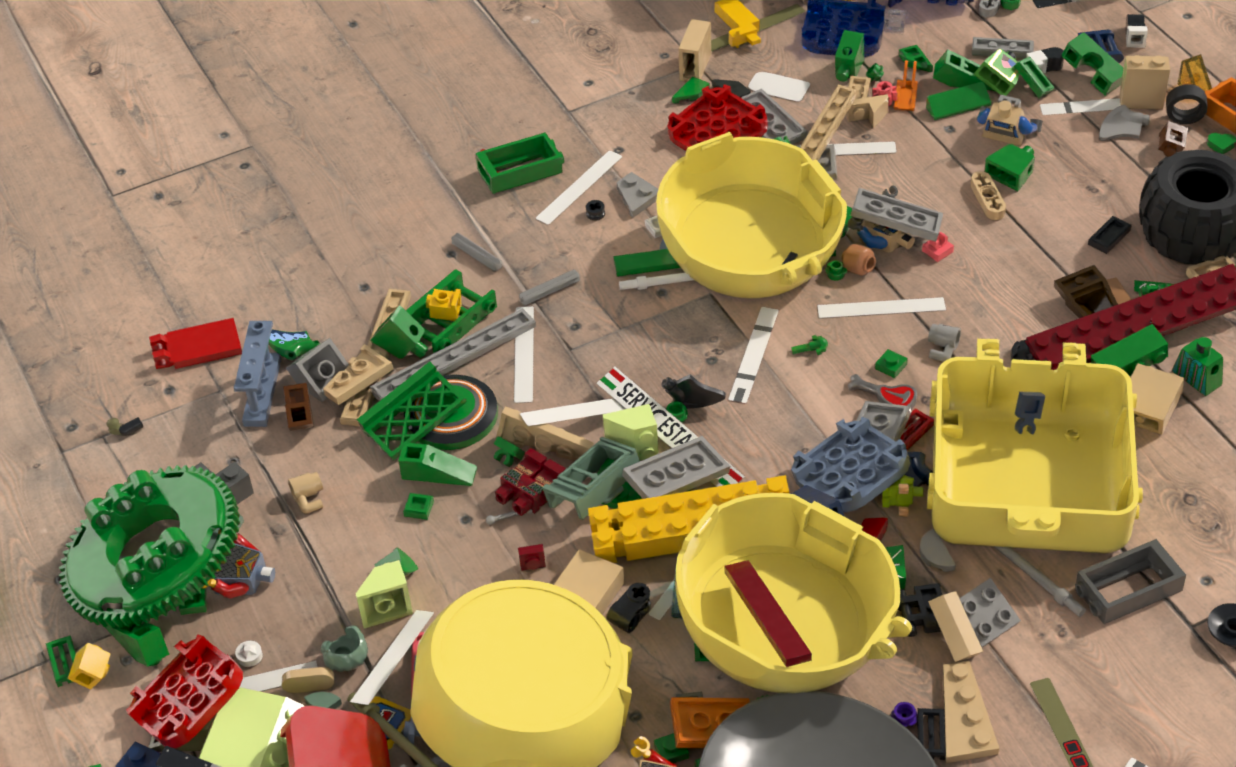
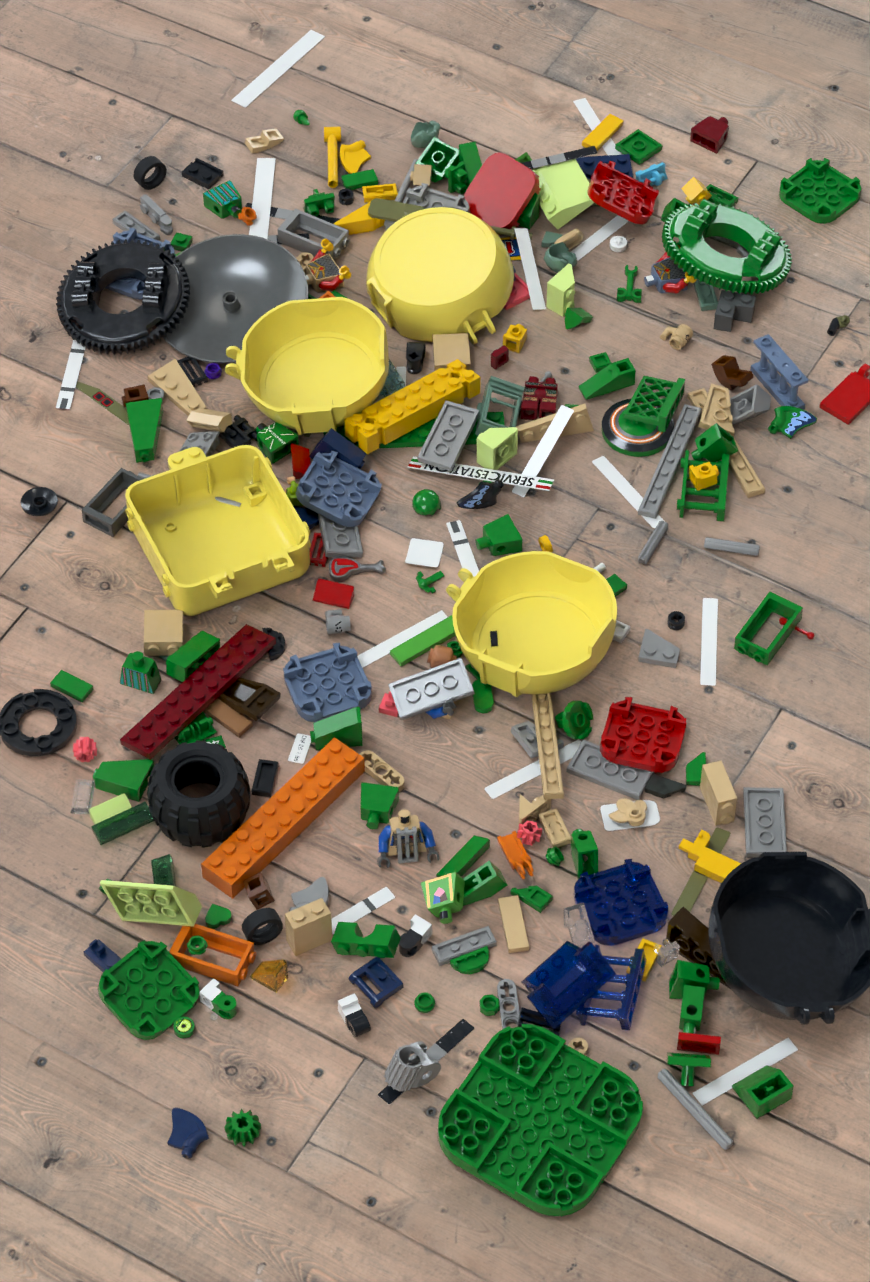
camera: 145 degrees right, 5 degrees up
(110, 723) = (654, 173): none -> medium azure hips
(298, 578) = (628, 293): none -> green bar
(490, 572) = (517, 334): none -> yellow brick
(662, 324) = (545, 544): none -> yellow tile
(663, 40) = (764, 820): none -> light grey tile
(704, 351) = (500, 537): none -> green torso
(752, 426) = (426, 502): none -> green hair
(768, 613) = (316, 340): dark red tile -> none
(781, 81) = (629, 812): none -> tan plate
(796, 379) = (424, 552): none -> white sticker
(858, 290) = (423, 642): none -> bright green tile
(891, 363) = (364, 592): green plate -> none
(920, 370) = (333, 593): none -> red slope
(950, 39) = (513, 924): none -> tan tile
(991, 290) = (327, 683): none -> sand blue tile
(1002, 719) = (155, 393): none -> light grey tile
(1003, 32) = (471, 962): none -> green tile
(1011, 230) = (343, 726): none -> green slope
(1028, 408) = (237, 559): dark blue plate -> none
(1034, 77) = (411, 904): green tile -> none
(1034, 714) = (134, 394): none -> reddish brown brick
(1042, 668) = (145, 425): none -> green slope
(1056, 250) = (300, 748): none -> white sticker
(1066, 21) = (424, 1002): none -> green plate
(1086, 190) = (283, 817): none -> orange brick

